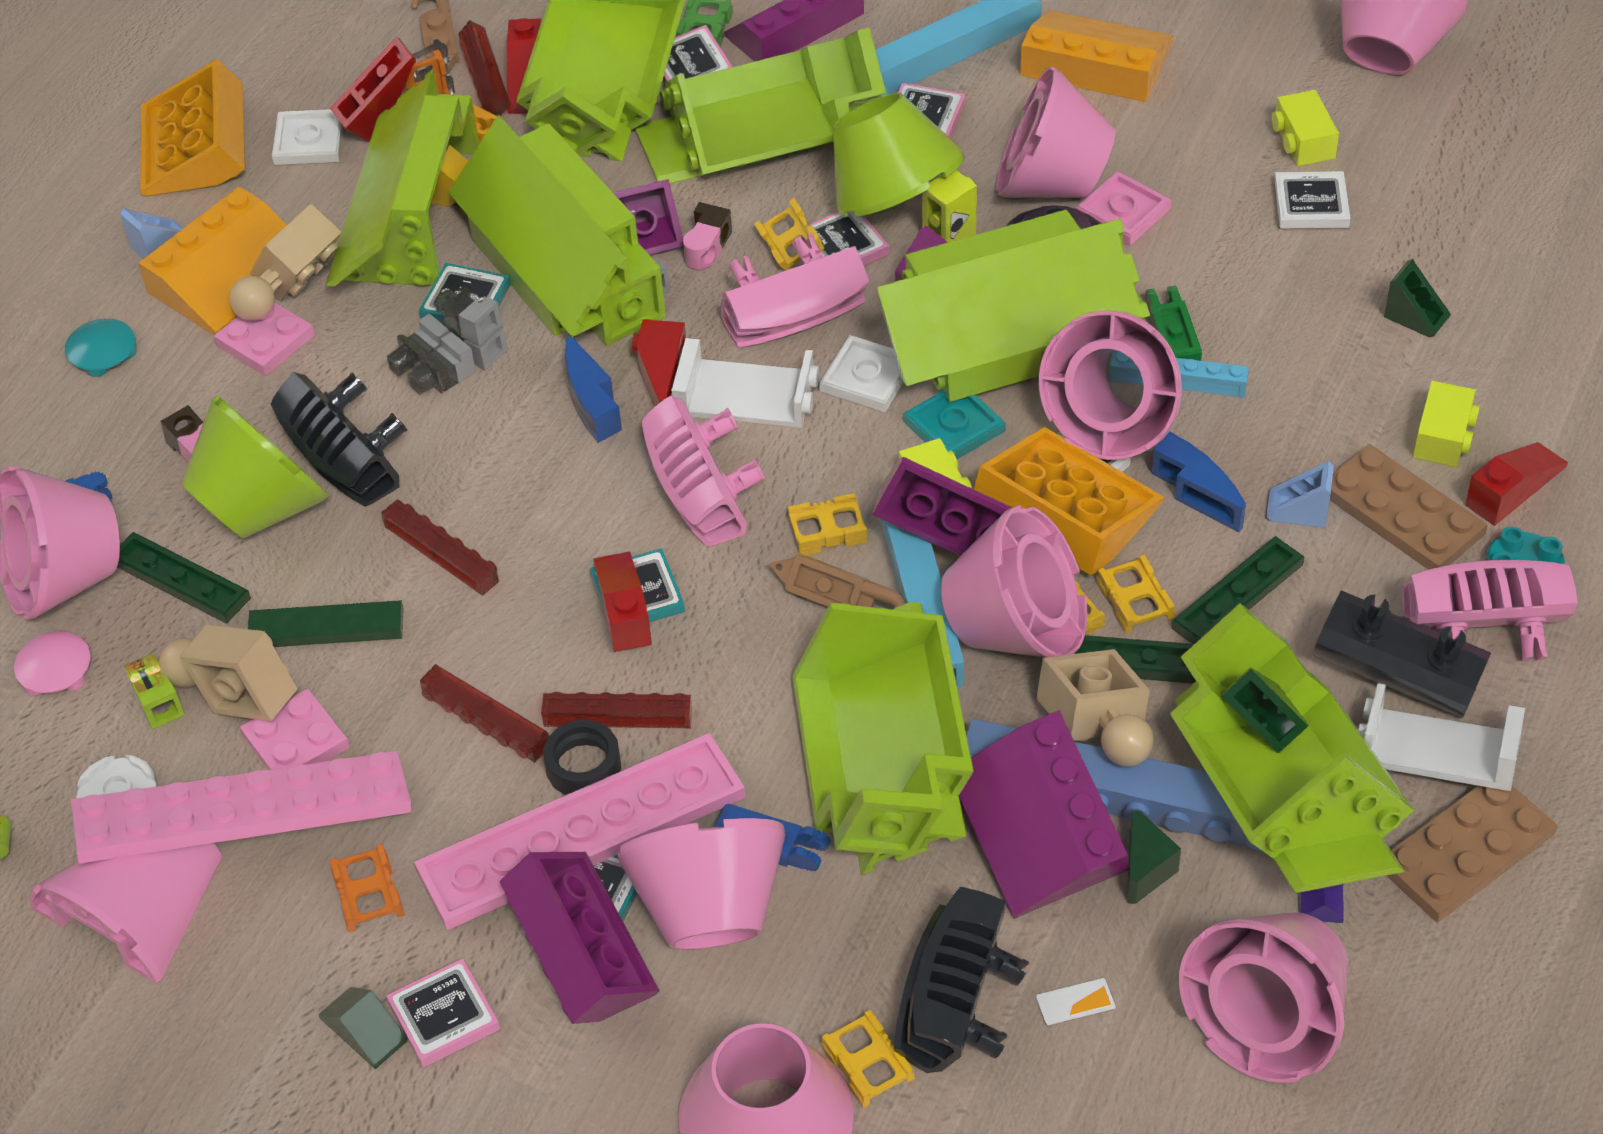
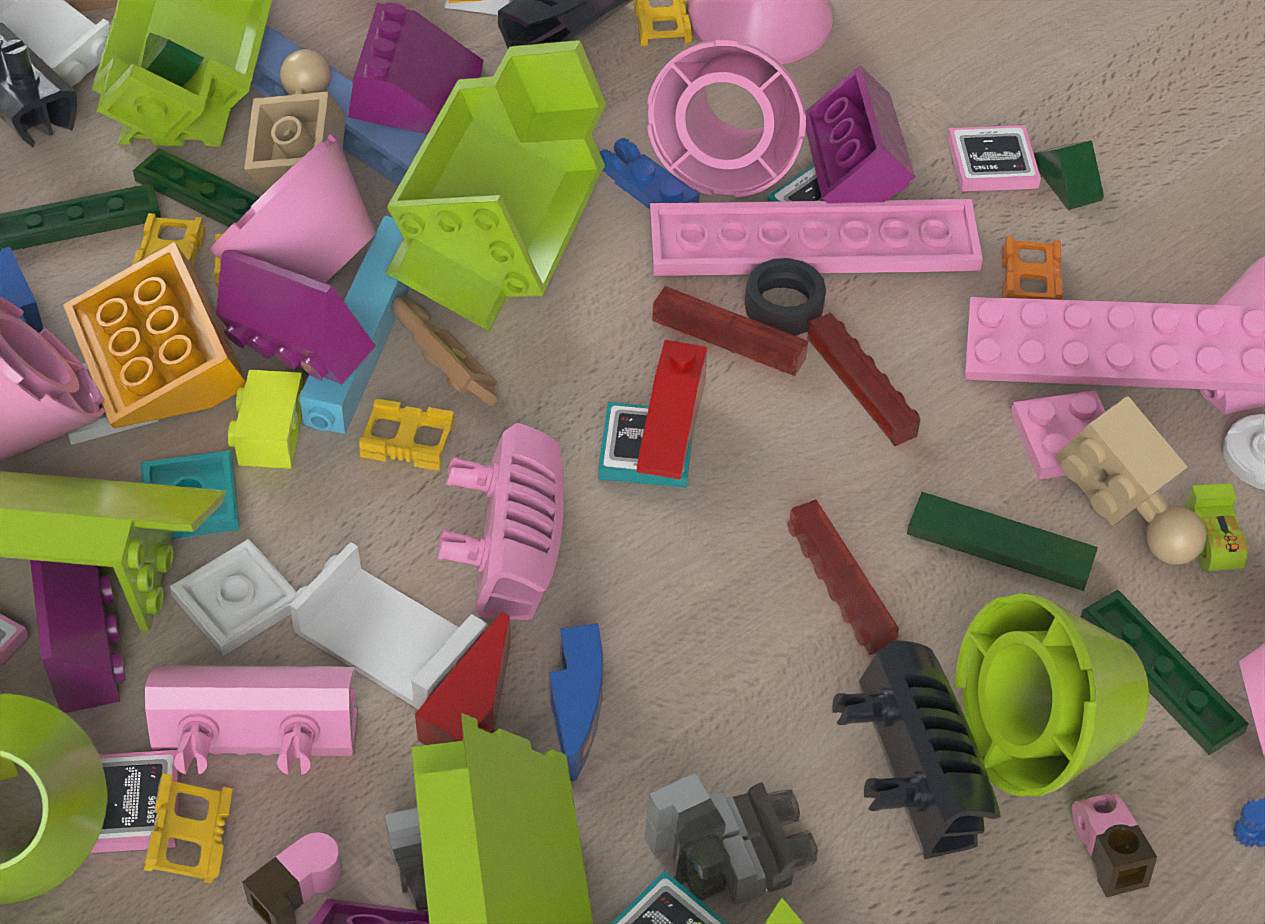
camera: 160 degrees left, 0 degrees up
(1151, 857) = (345, 42): dark green slope -> none

